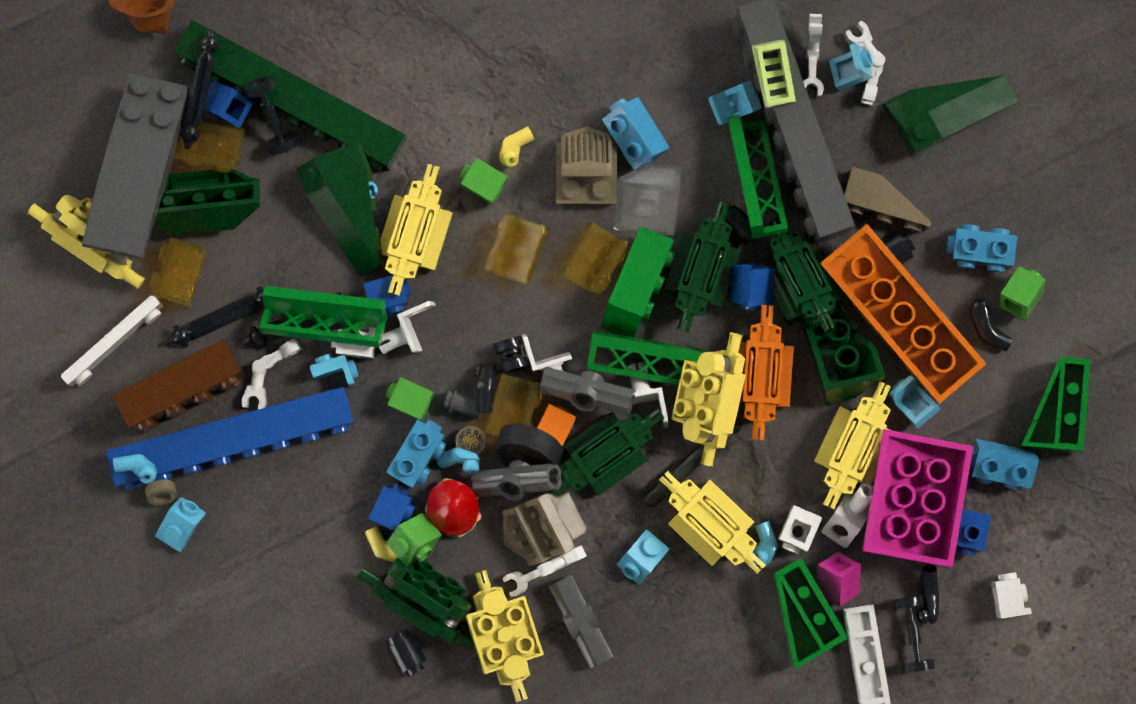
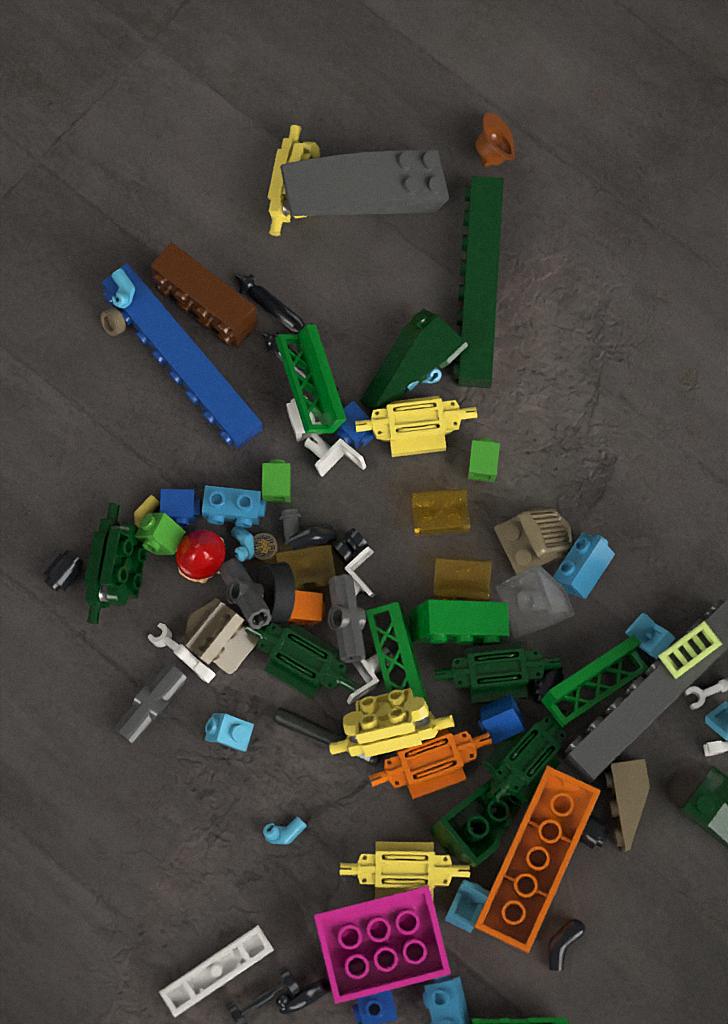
camera: 70 degrees right, 10 degrees down
(144, 313) = (251, 247): white plate -> none
(178, 272) = (297, 258): clear yellow brick -> none
(180, 523) = (94, 347): medium azure bracket -> none
(199, 89) = (450, 206): black wheel -> none
(207, 201) = (362, 251): dark green wedge -> none
(216, 146) = (411, 238): clear yellow bracket -> none
(227, 104) = (448, 234): blue brick -> none
(259, 371) = (248, 354): white piece -> none
(281, 142) = (438, 290): black wheel -> none
(328, 365) = (275, 407): medium azure bracket -> none
(503, 635) = (110, 641): light yellow piece -> none
(511, 146) = (525, 472): light yellow arm -> none
(711, 523) = (283, 775): light yellow piece -> none
(805, 614) = (239, 892): green wedge -> none
(809, 524) = (318, 846): white brick -> none
(839, 578) = (282, 909): dark pink panel -> none
(850, 514) = (342, 893): white bracket -> none
(975, 247) = (627, 900): dark azure brick -> none
(1022, 292) = (607, 959): bright green brick -> none

